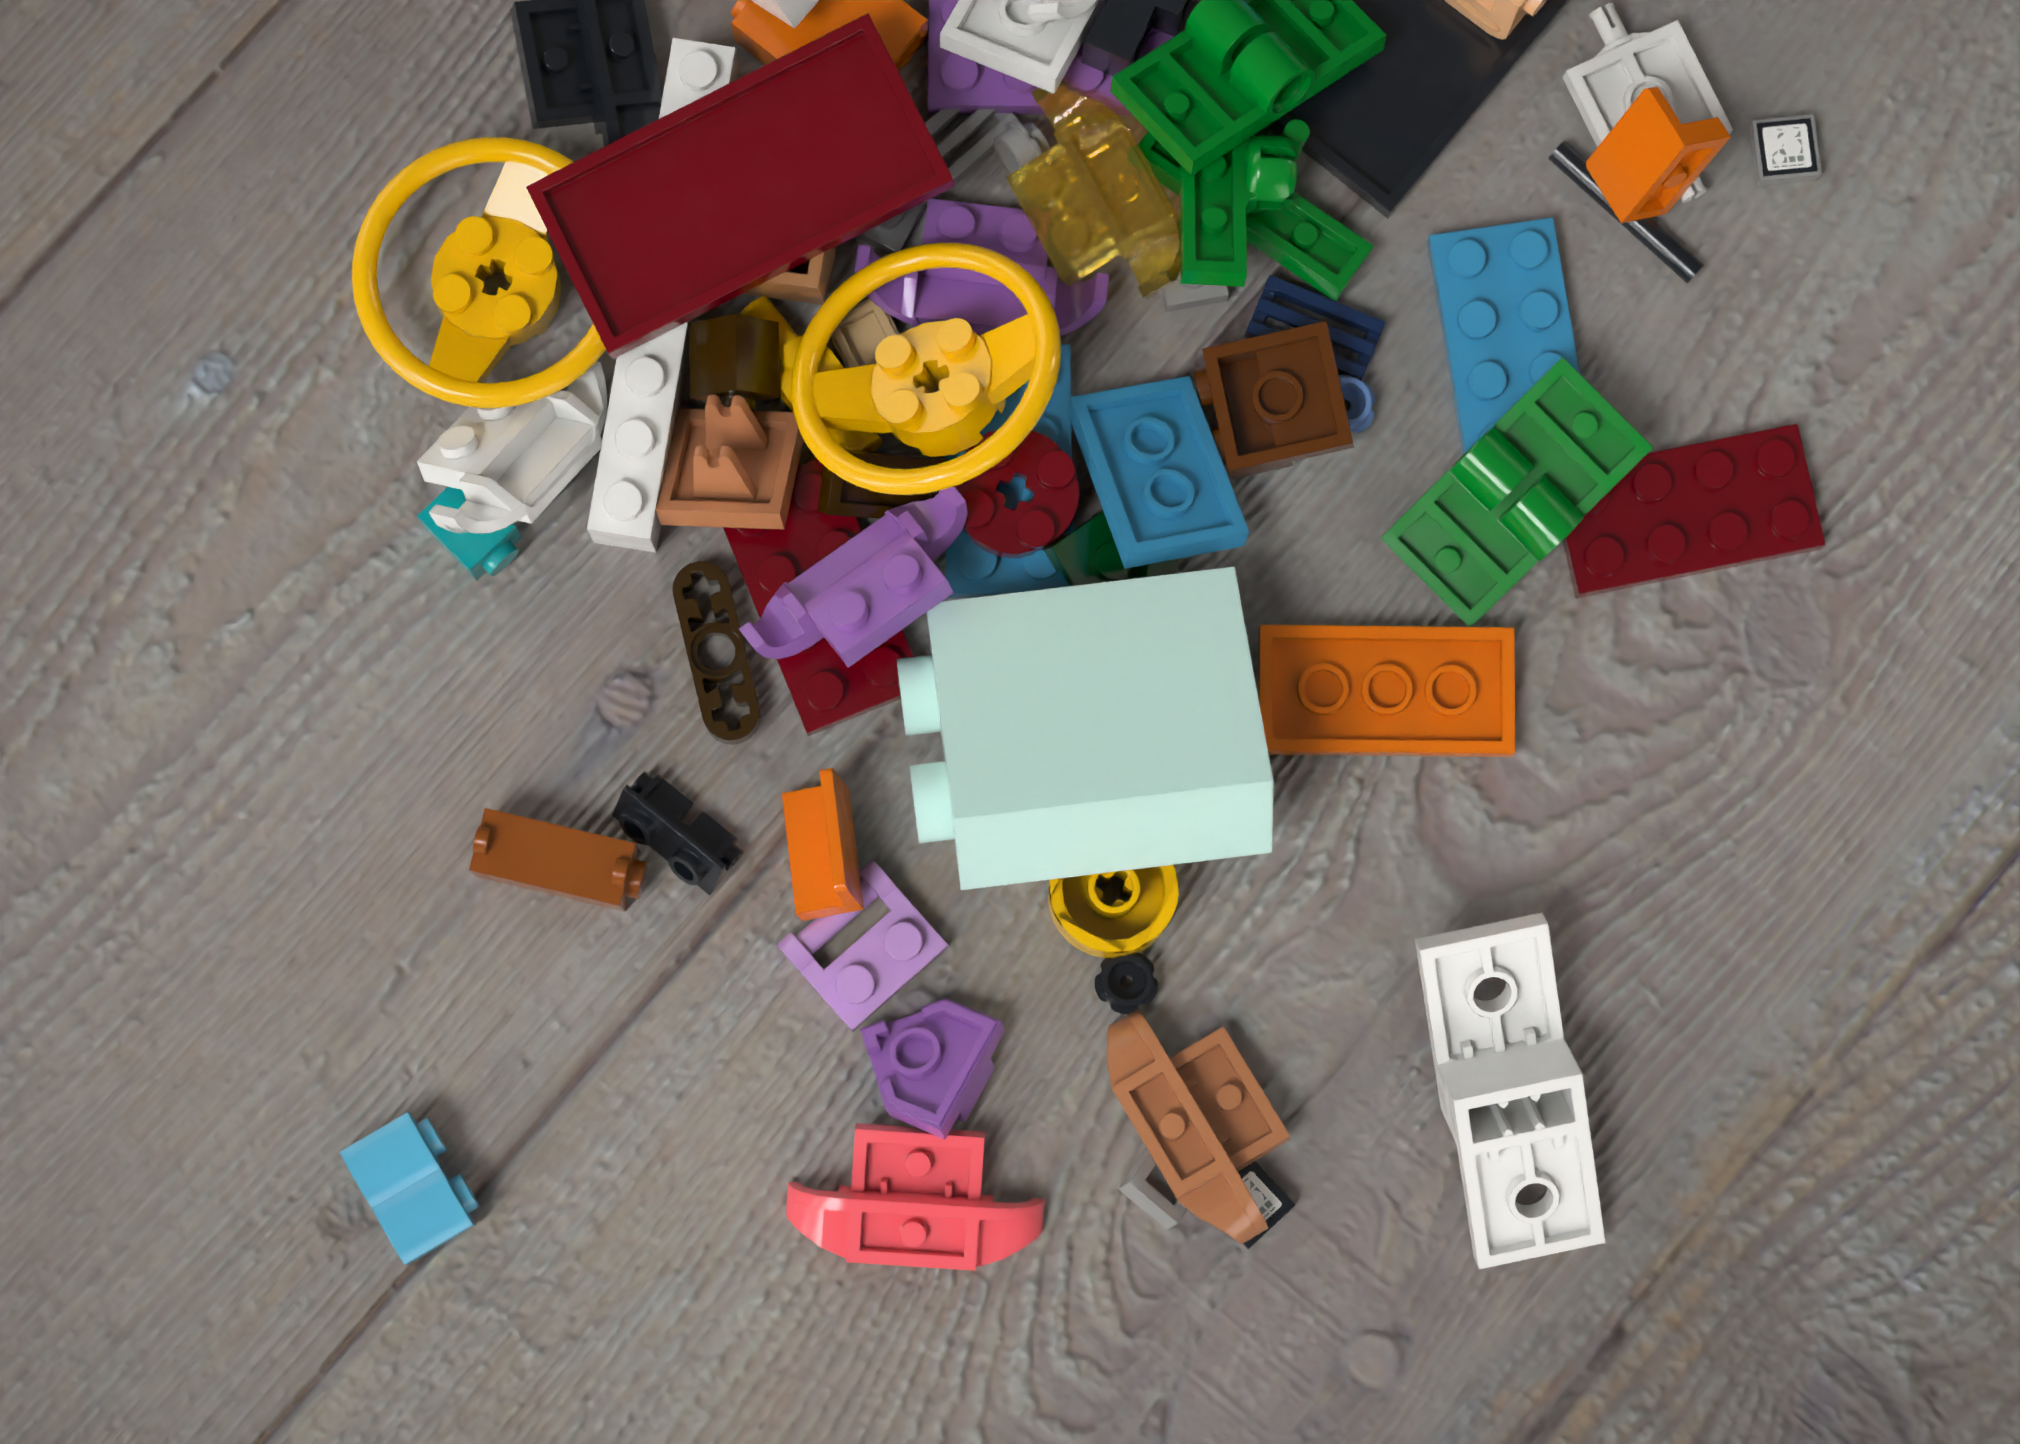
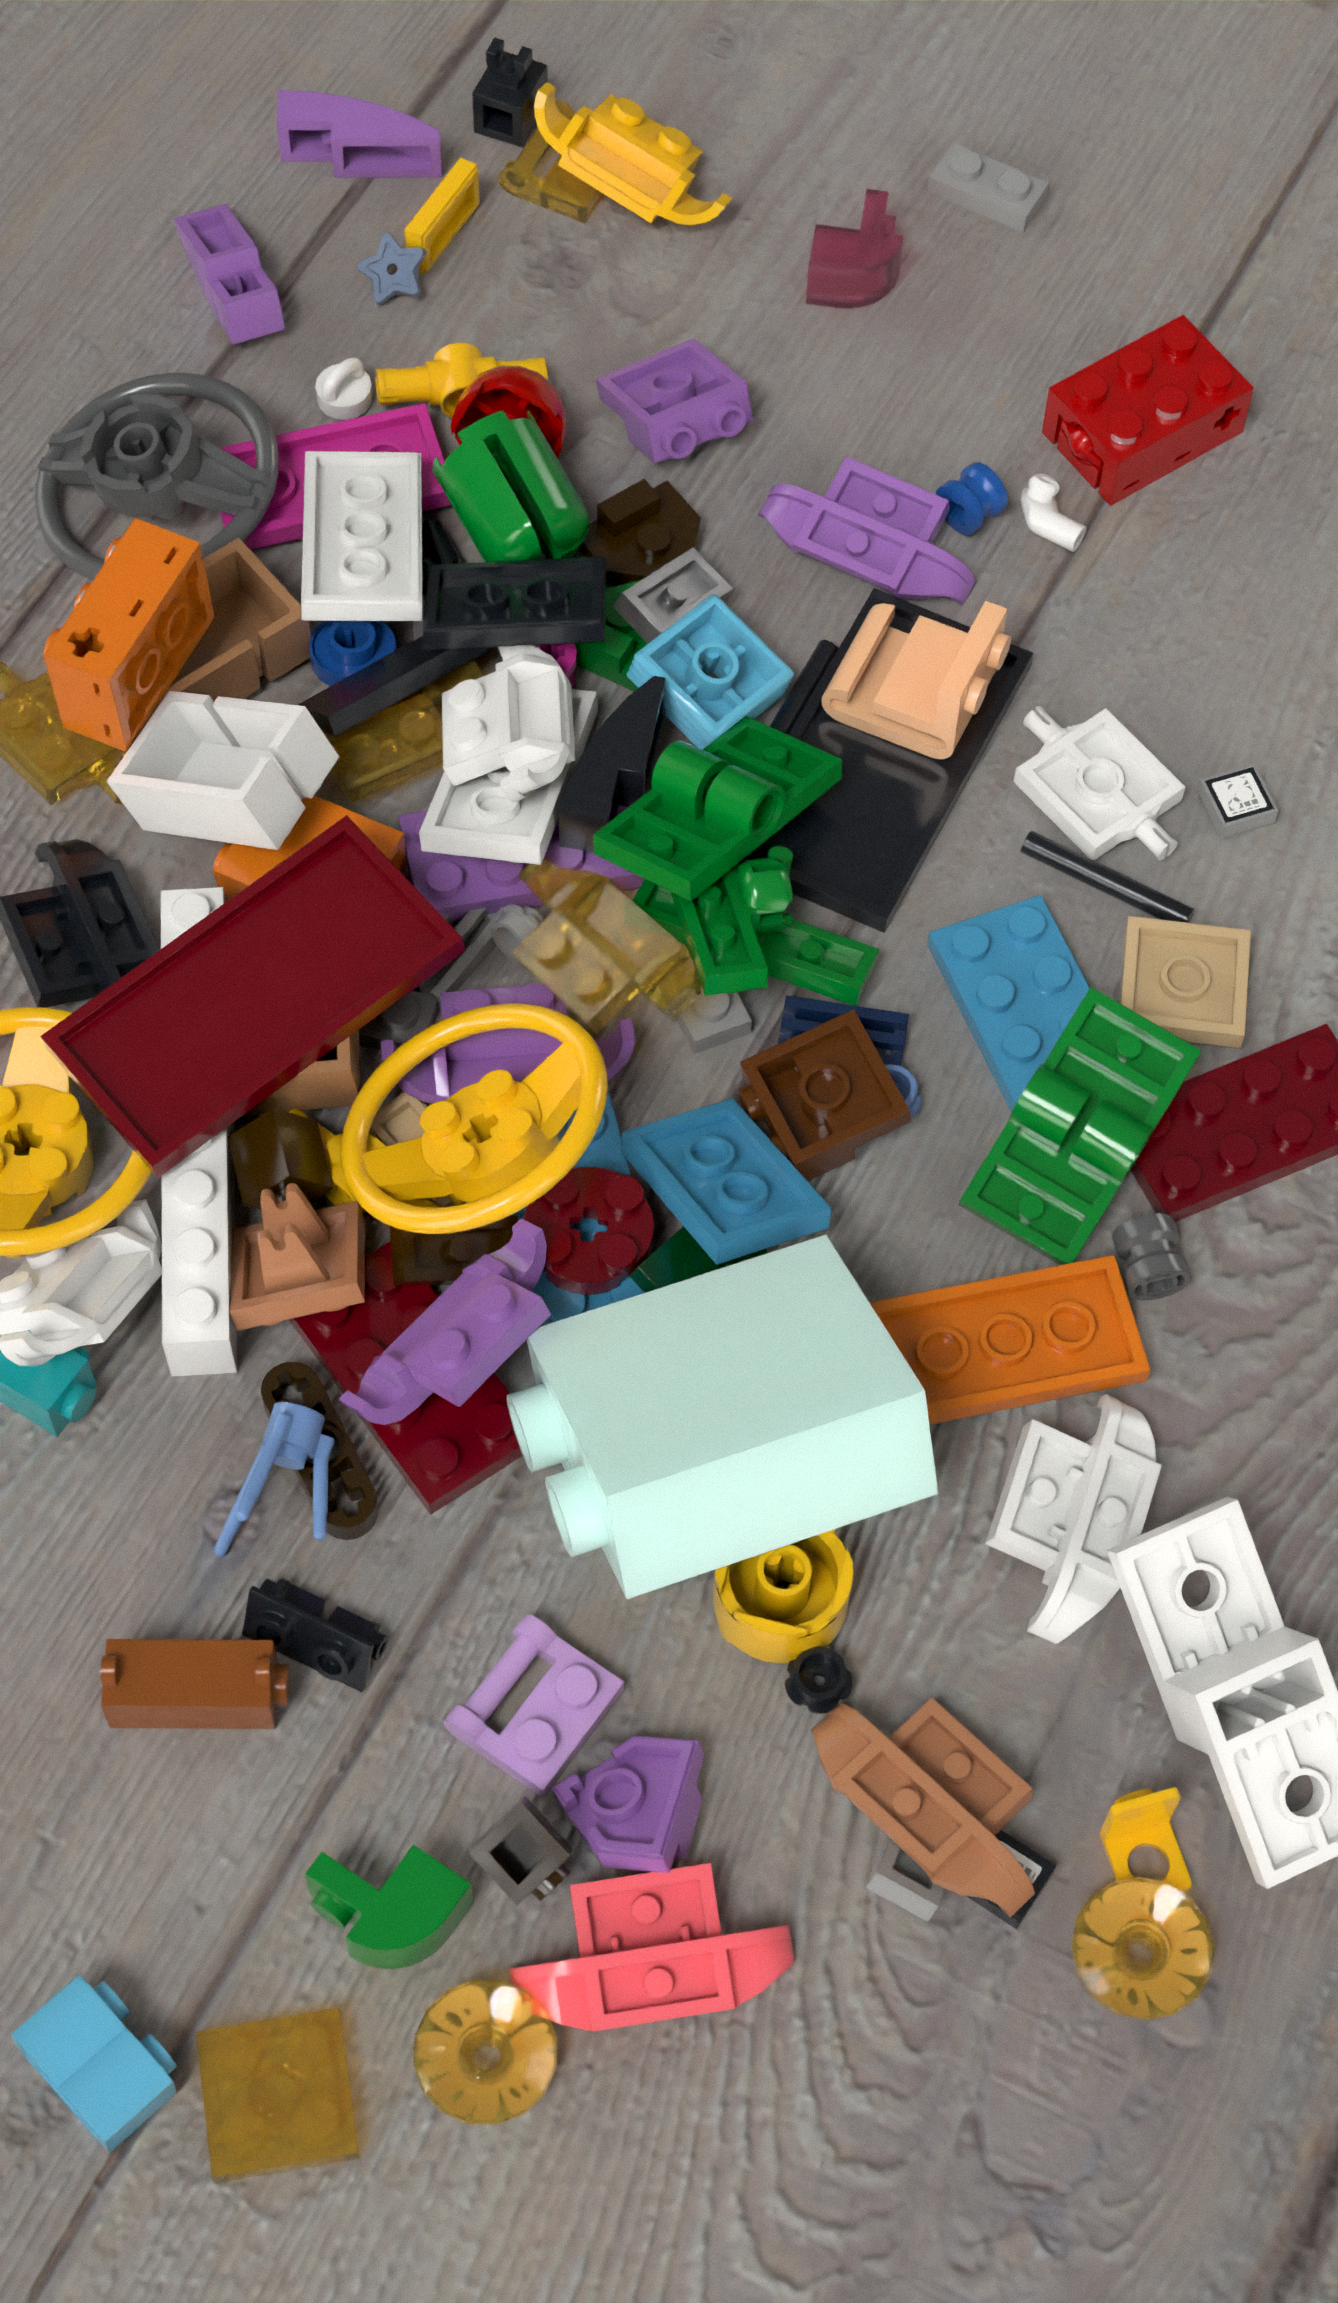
camera: 10 degrees left, 20 degrees down
(562, 1248) = (277, 2095): none -> clear yellow plate
(687, 647) = (288, 1442): none -> medium blue plant
(702, 1123) = (401, 1921): none -> green brick
(715, 1248) = (478, 2017): none -> clear yellow dish
(819, 1089) = (523, 1853): none -> dark brown brick
(822, 849) = (471, 1612): orange panel -> none
(1384, 1290) = (1156, 1918): none -> clear yellow dish
(1385, 1182) = (1140, 1821): none -> yellow bracket
(1409, 873) = (1071, 1505): none -> white plate
(1550, 641) = (1151, 1257): none -> dark grey wheel
(1652, 157) = (1121, 812): orange panel -> none
(1669, 346) = (1187, 978): none -> tan plate

